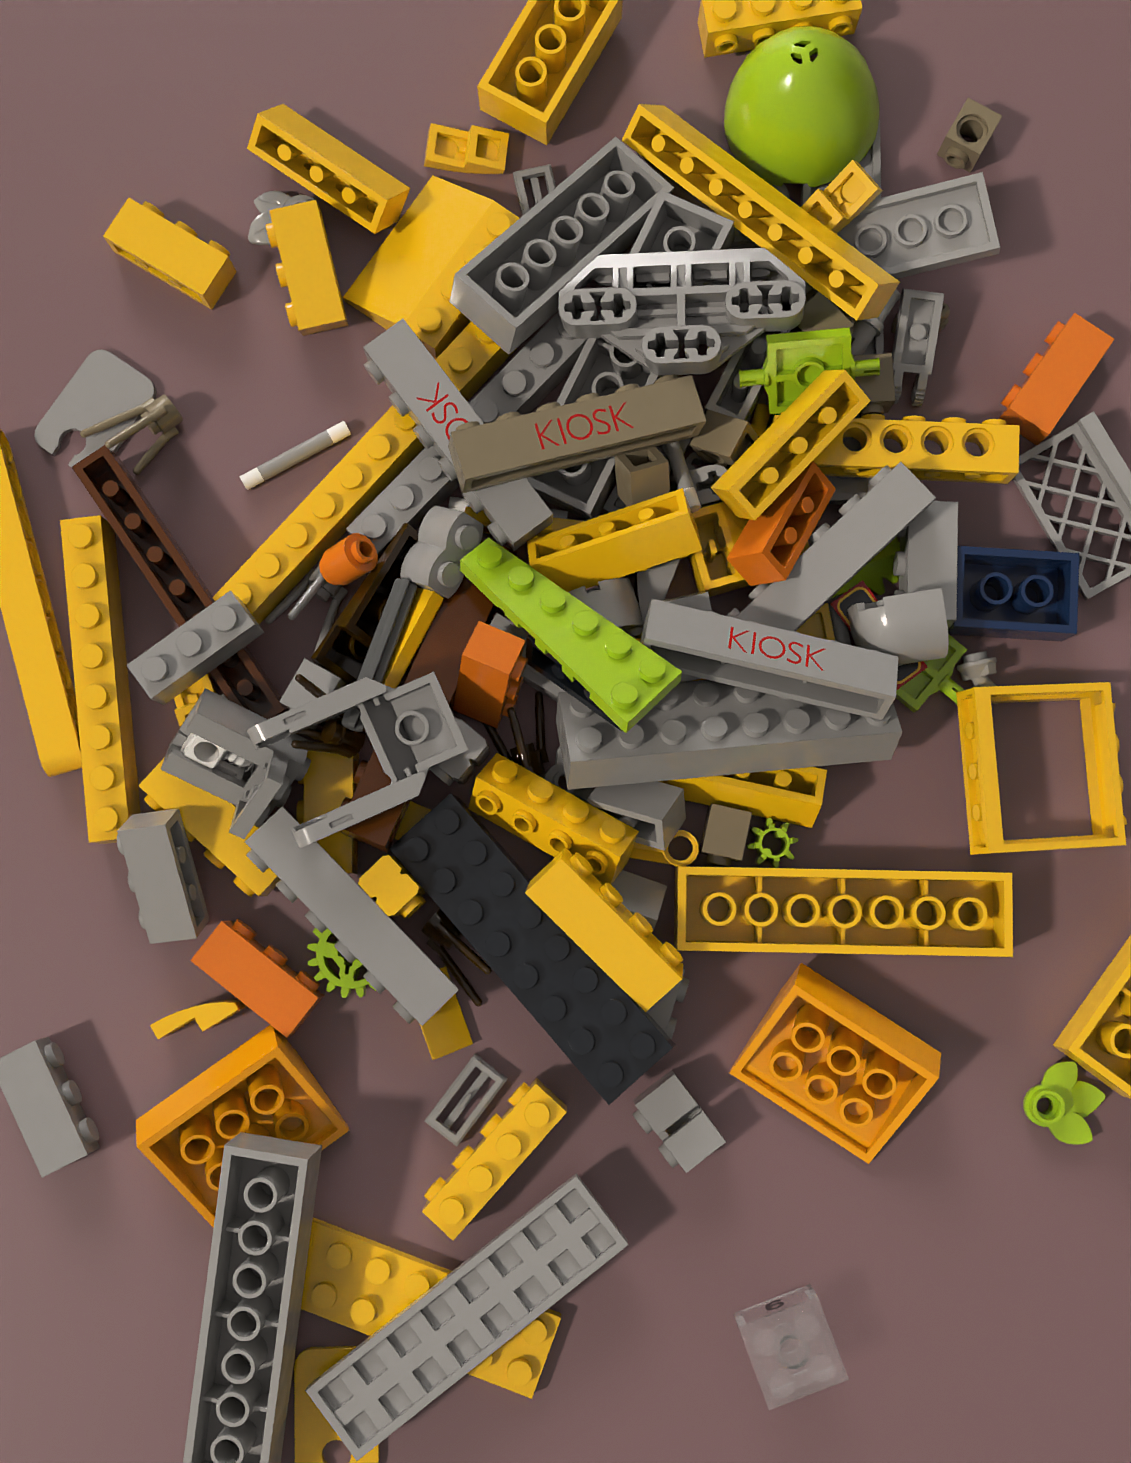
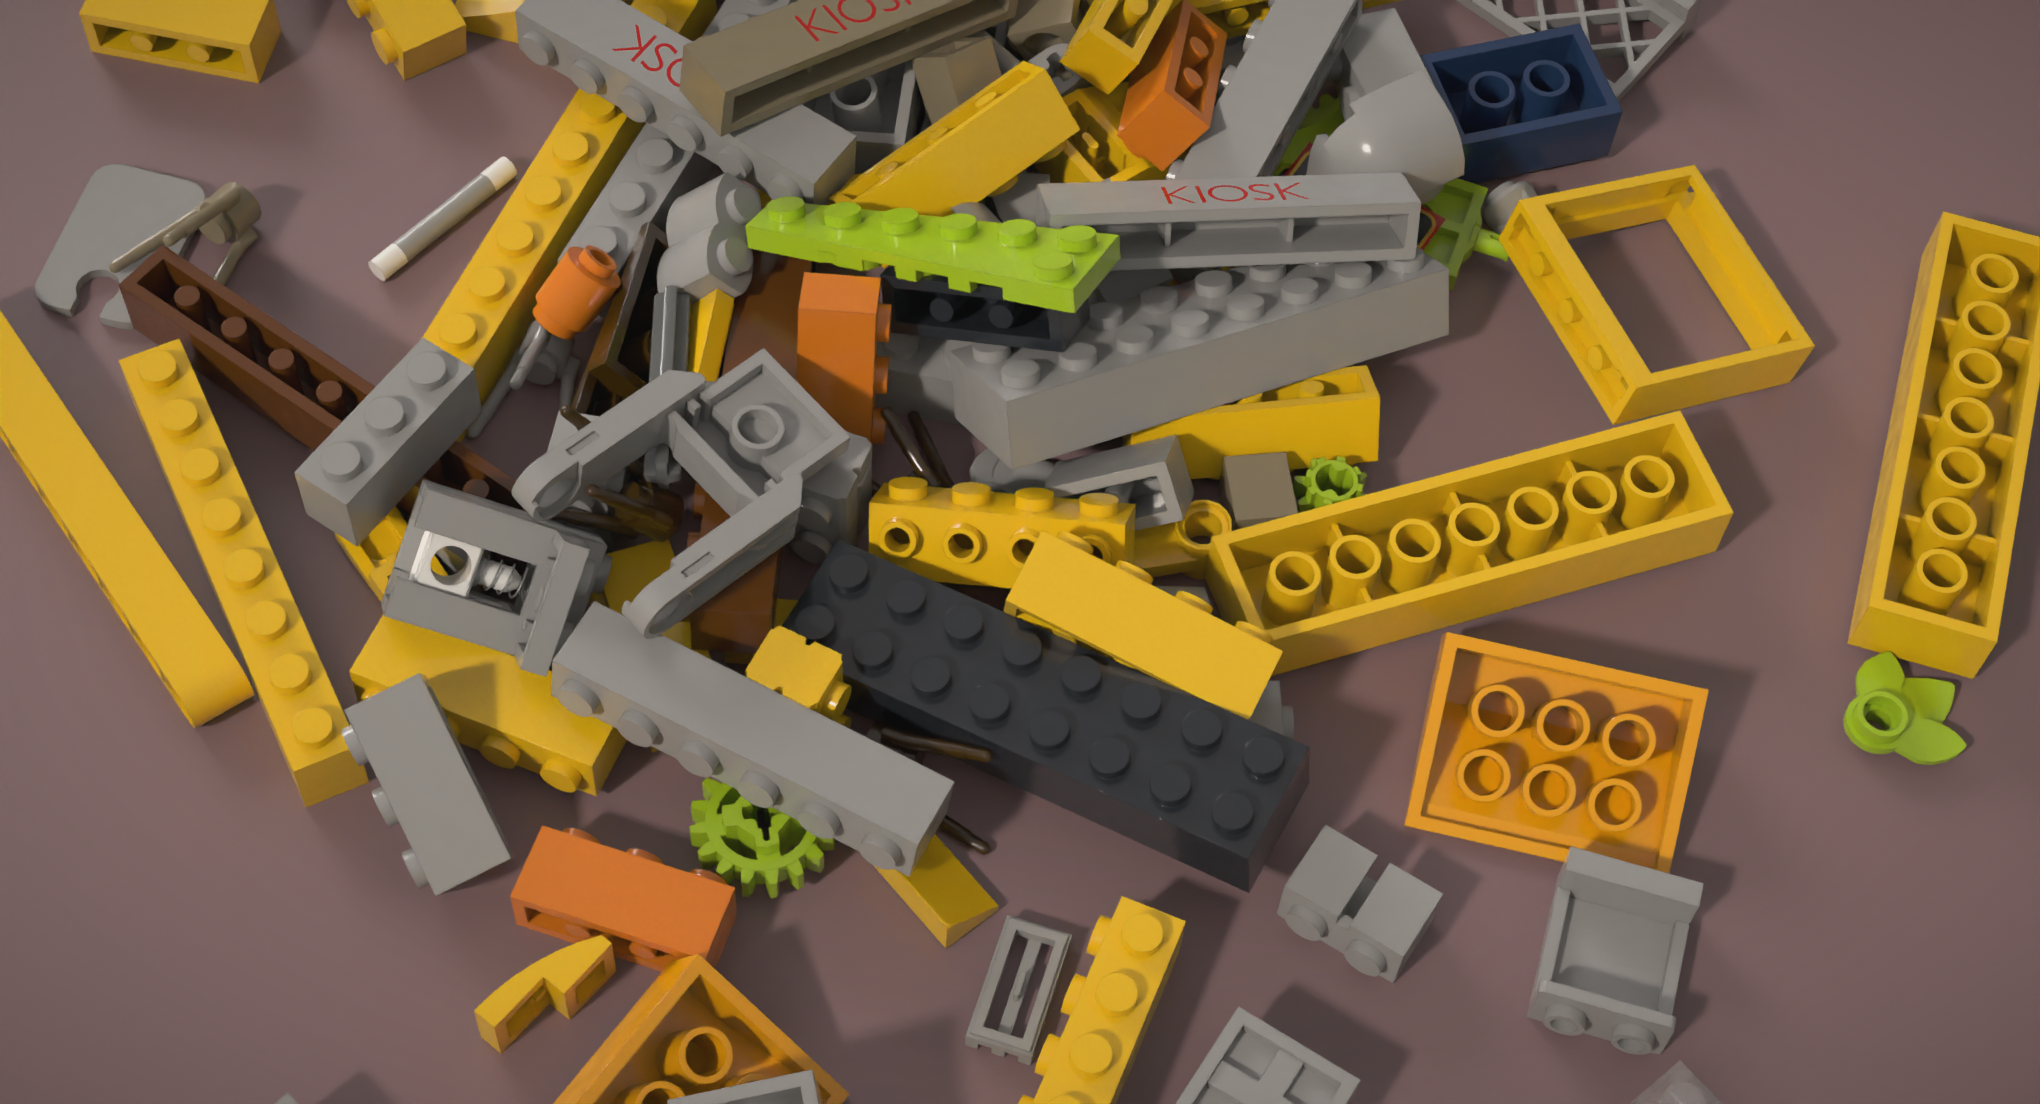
camera: 25 degrees left, 25 degrees down
(814, 1202) = (1613, 952): none -> light grey panel

